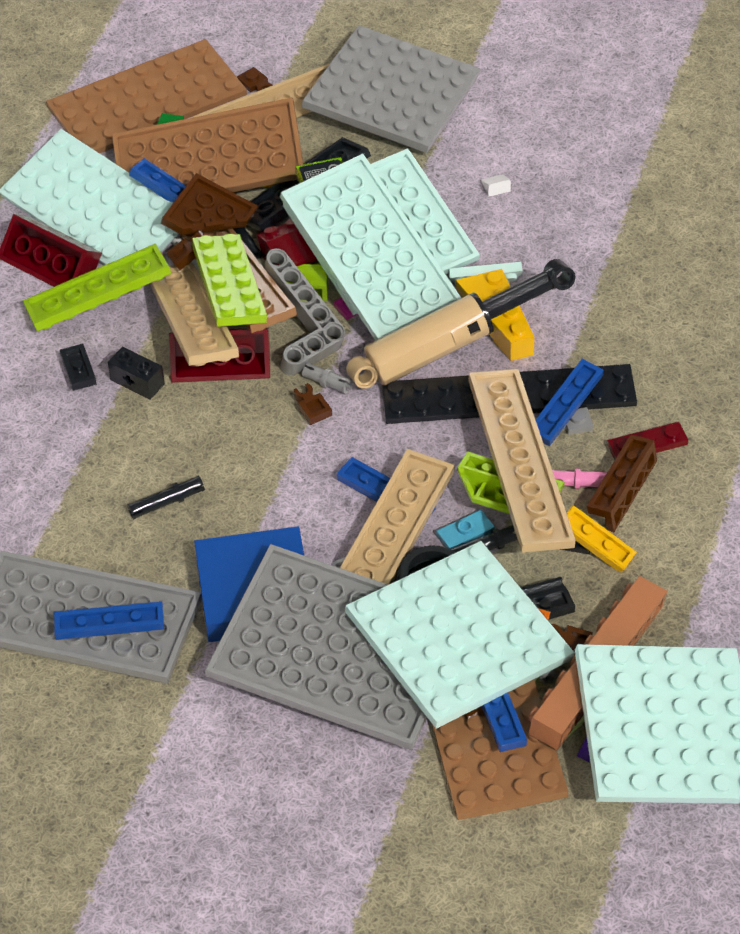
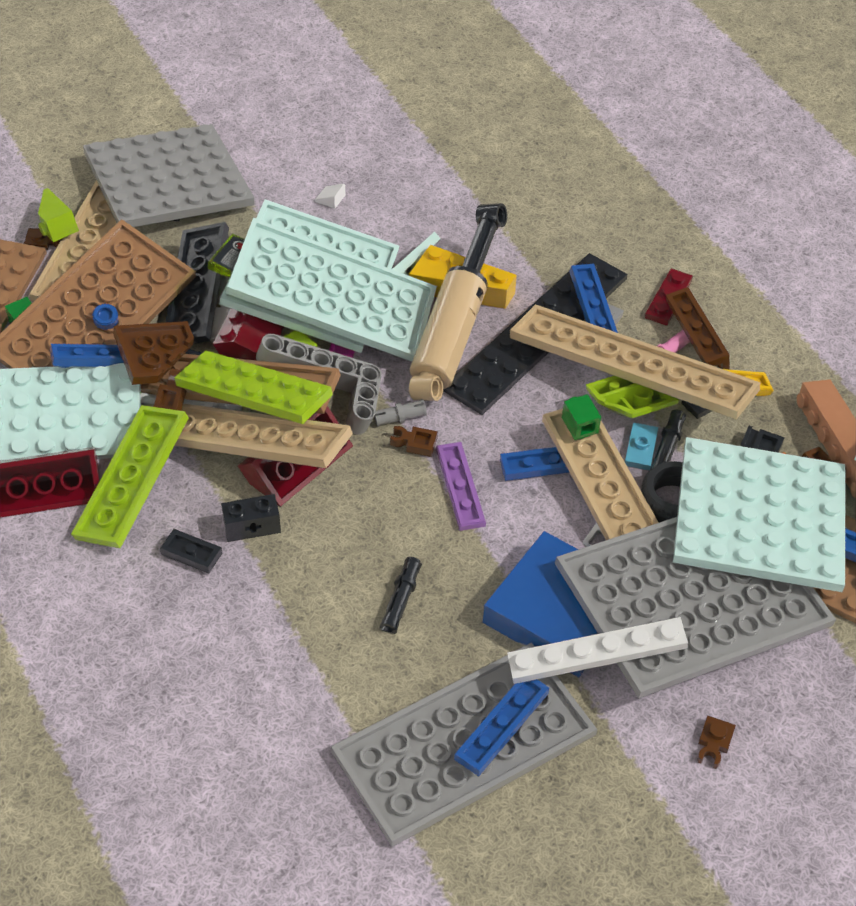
camera: 50 degrees left, 0 degrees up
(207, 164) = (105, 316): none -> blue tile
(213, 622) = (597, 650): none -> white plate
(238, 750) = (716, 737): none -> reddish brown plate
(271, 68) = (55, 217): none -> lime slope
(302, 459) = (460, 486): none -> medium lavender tile
(422, 468) = (581, 417): none -> green brick

